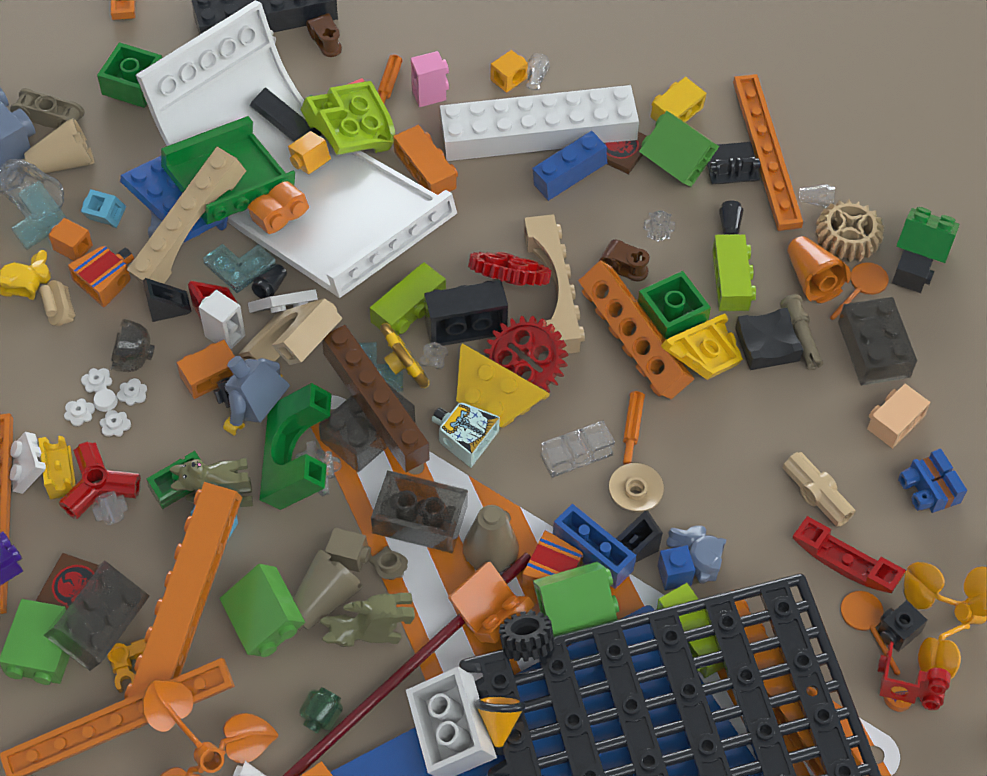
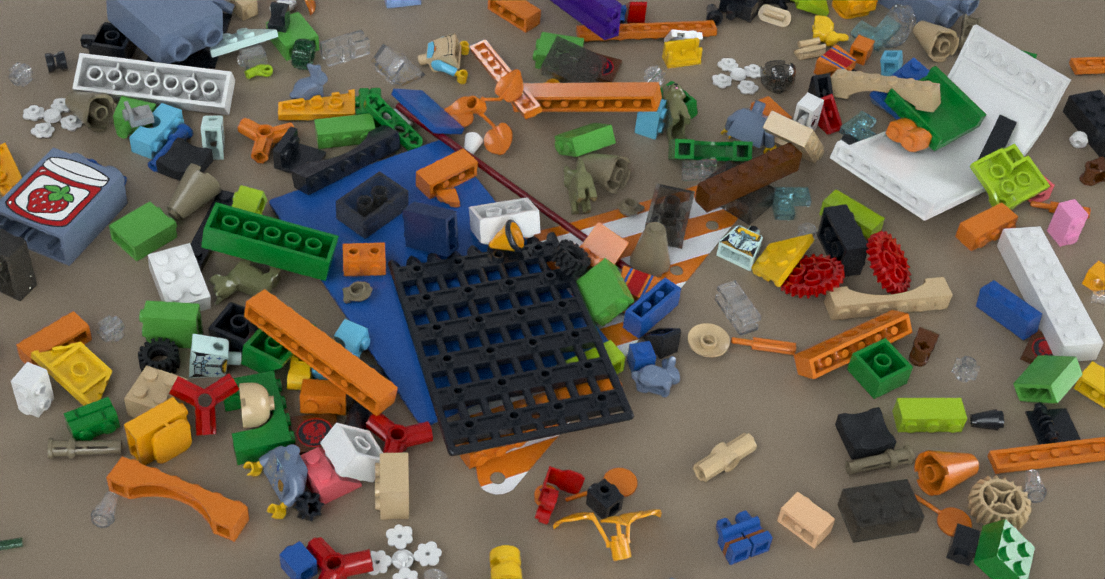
camera: 85 degrees right, 10 degrees down
(93, 469) = (675, 67): red piece -> none
(279, 302) = (828, 143): white wing -> none
(309, 152) = (967, 153): light orange brick -> none
(321, 710) = (519, 172): clear green head -> none
(348, 549) = (637, 184): dark tan brick -> none
(402, 357) = (795, 203): piece -> none
(706, 348) = (843, 385): yellow wing -> none
(847, 560) = (666, 469): red slope -> none

